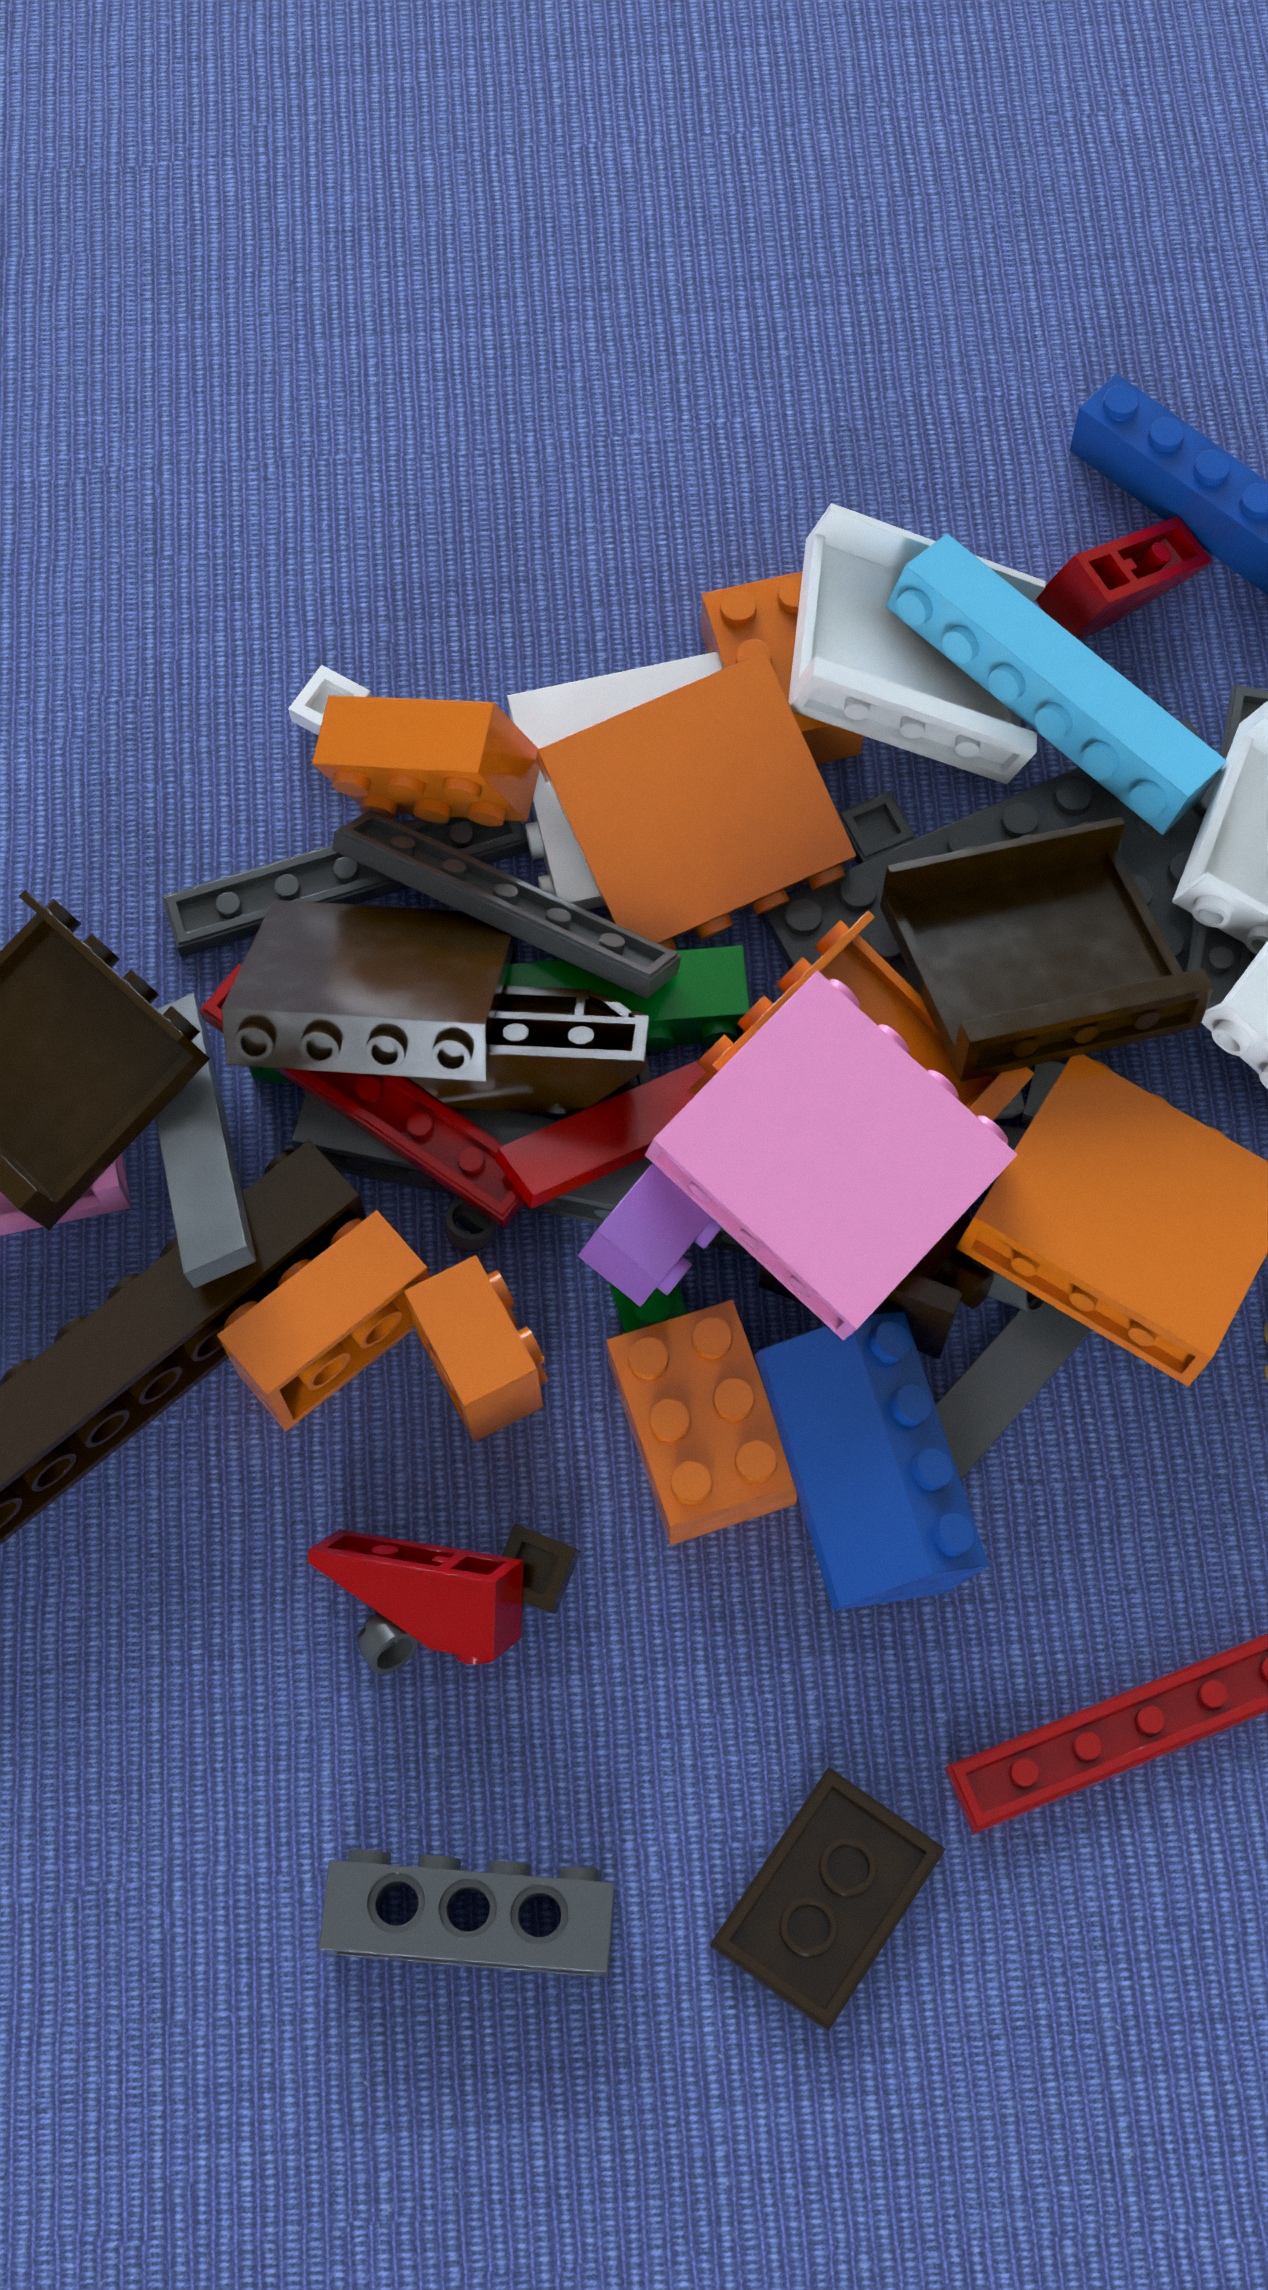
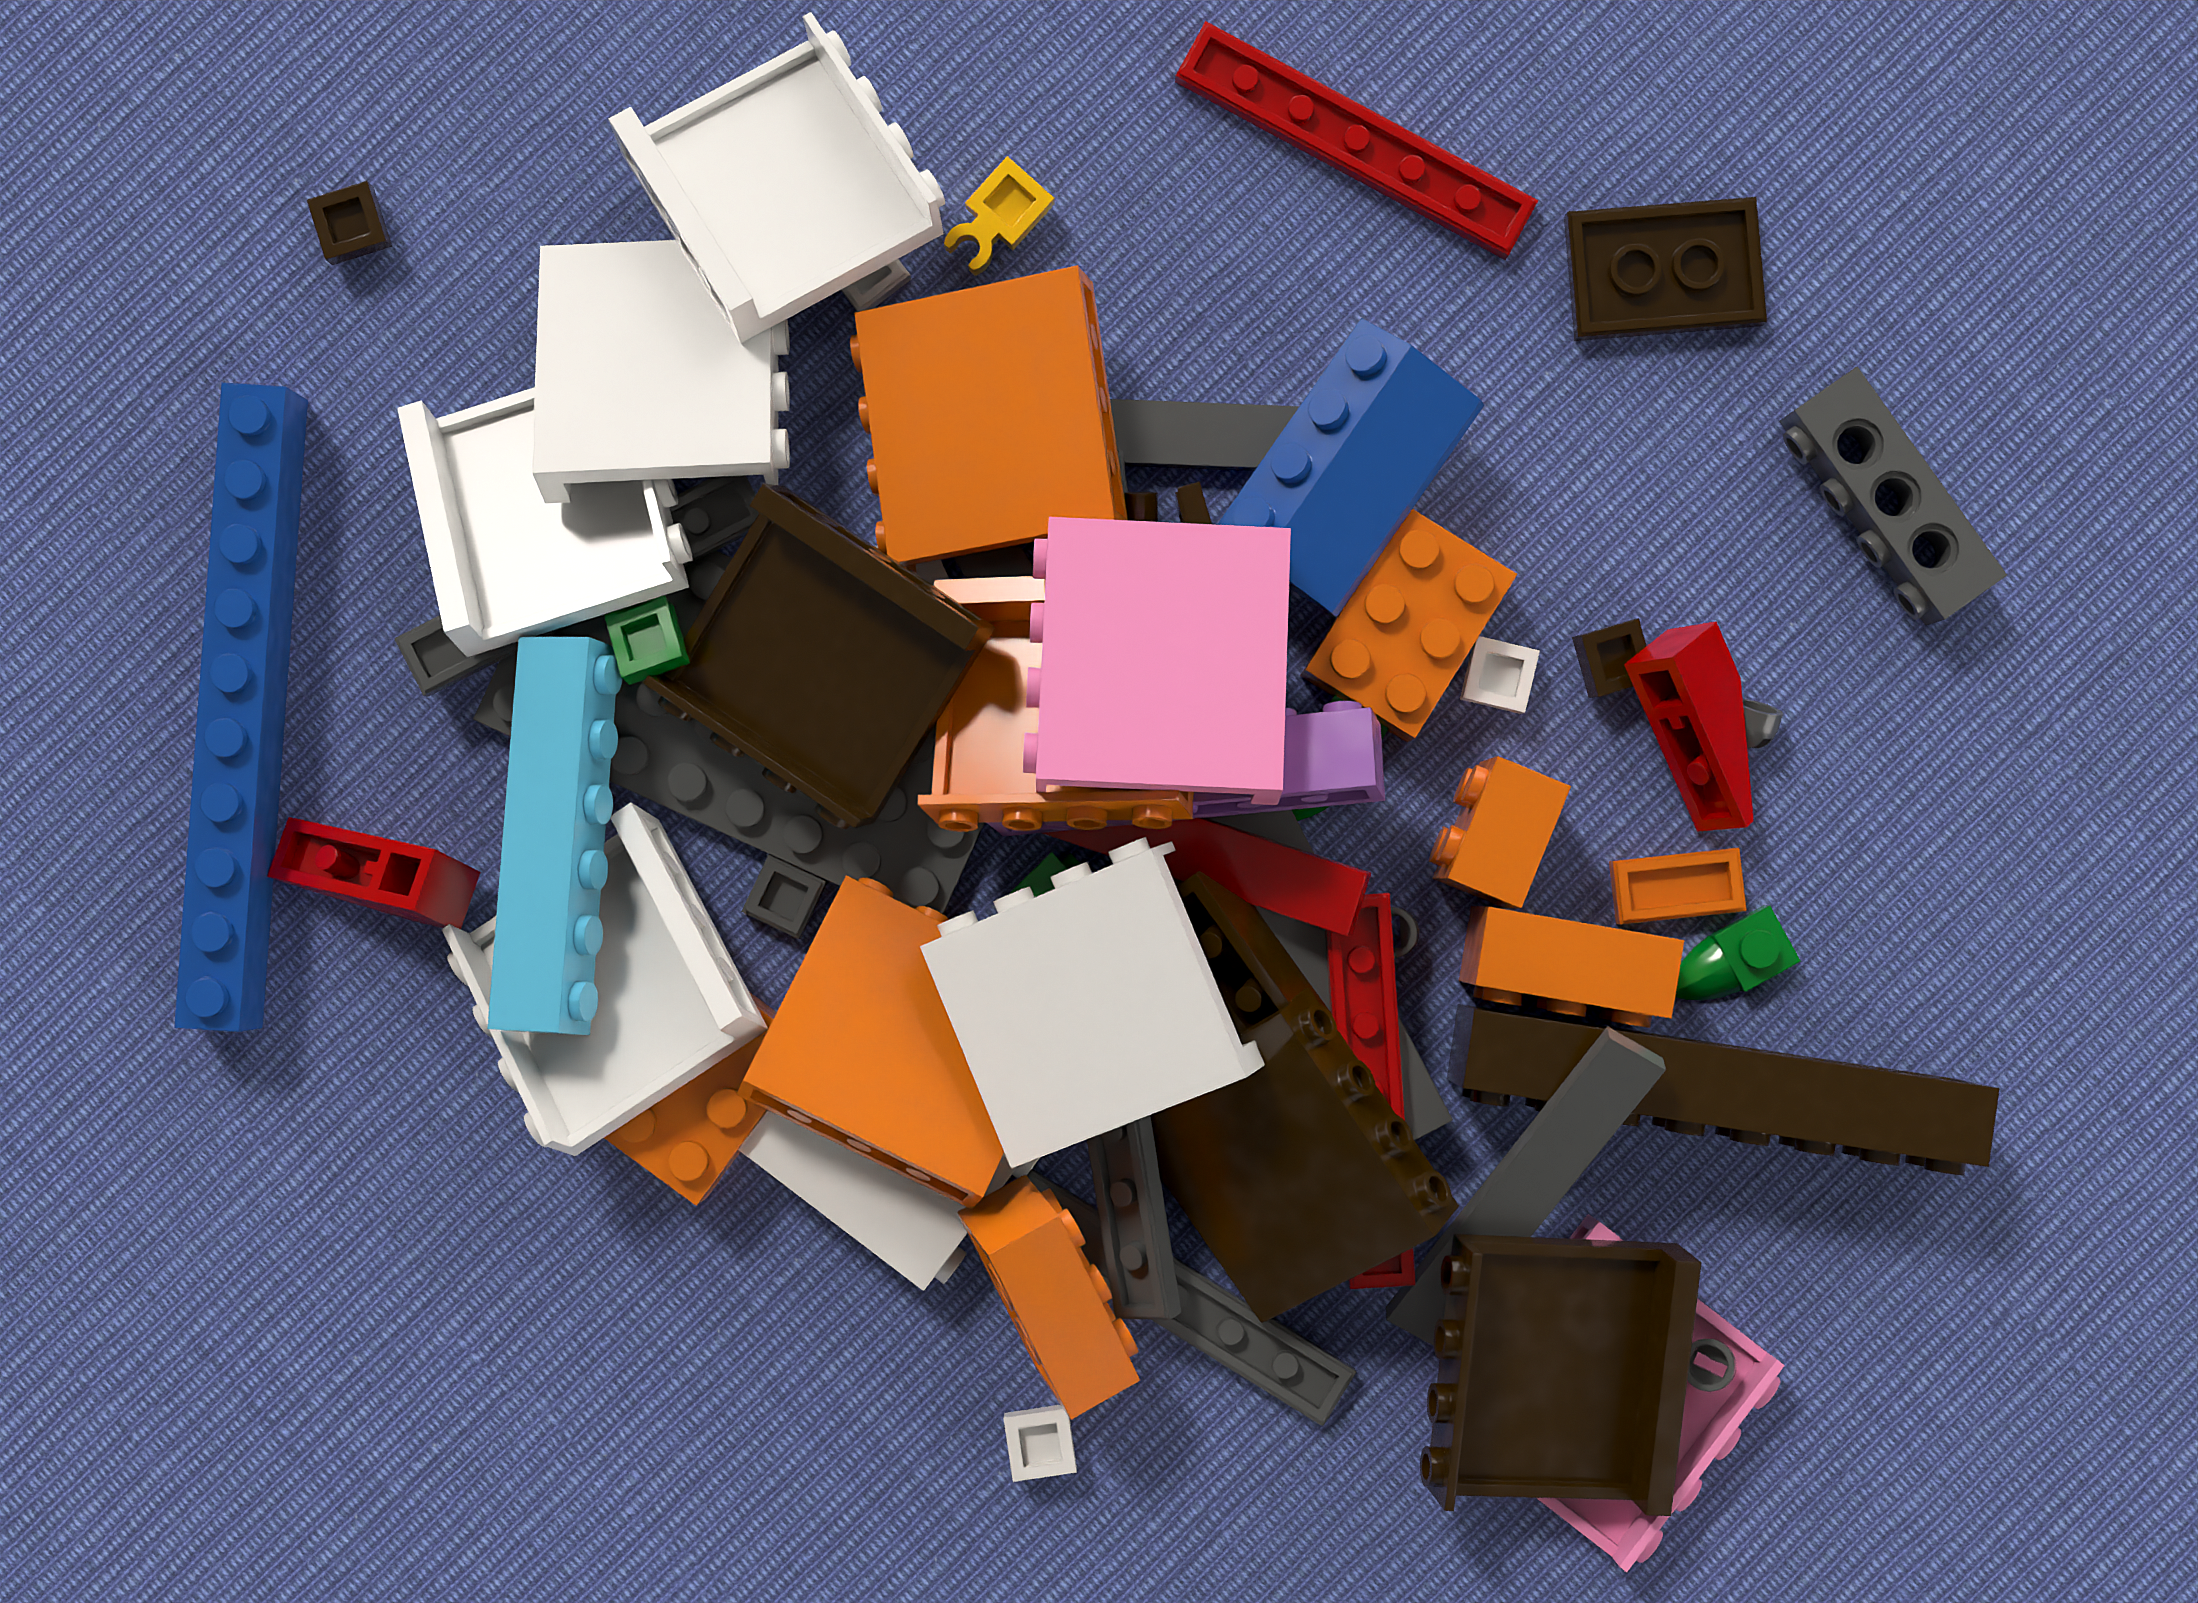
camera: 130 degrees left, 20 degrees up
(215, 1476) = (1736, 957): none -> green plate
(311, 1476) = (1677, 886): none -> orange tile
(599, 1467) = (1499, 675): none -> white plate
(614, 911) = (1086, 1004): none -> white panel
(1153, 848) = (646, 639): none -> green plate

